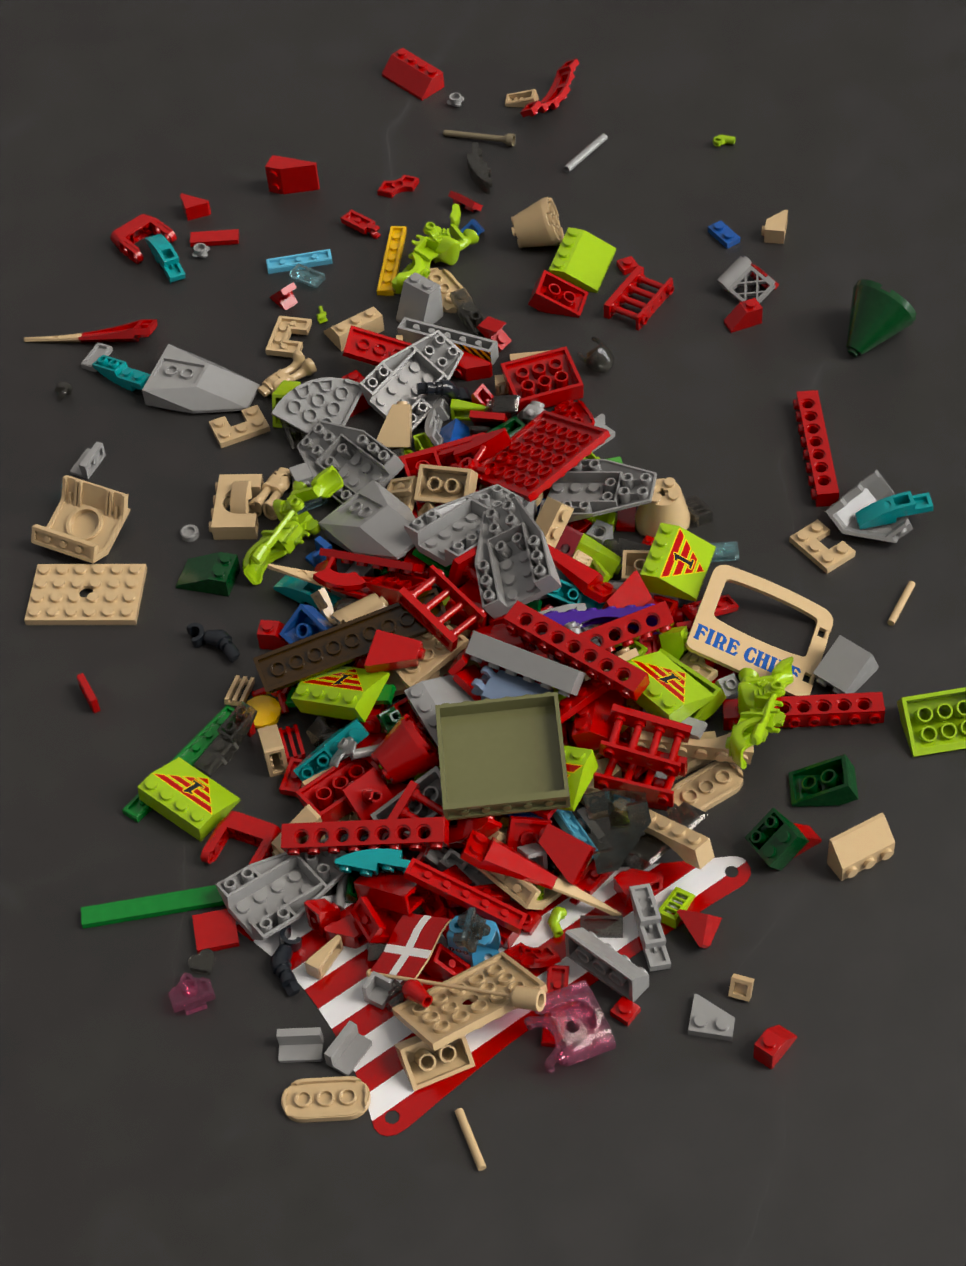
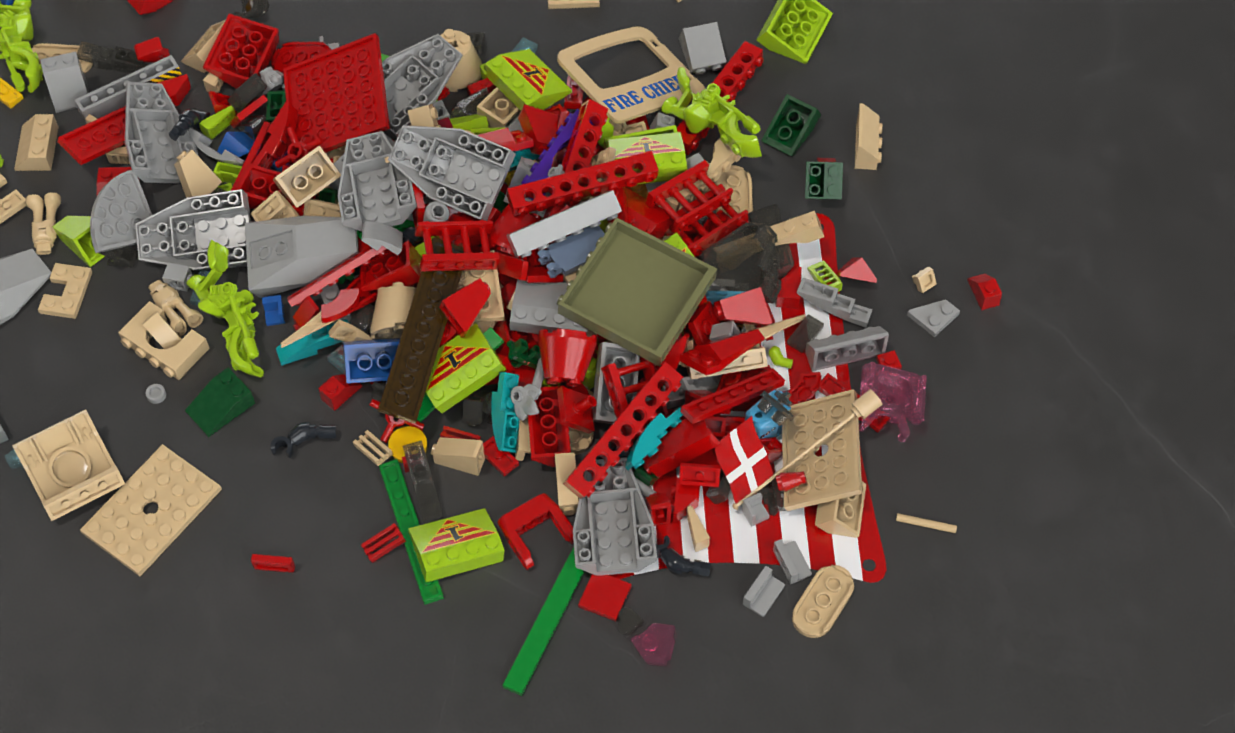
camera: 60 degrees left, 10 degrees up
(159, 748) = (376, 539): none -> red tile
(414, 558) = (379, 235): none -> light grey slope
(464, 572) = (436, 212): none -> light grey head

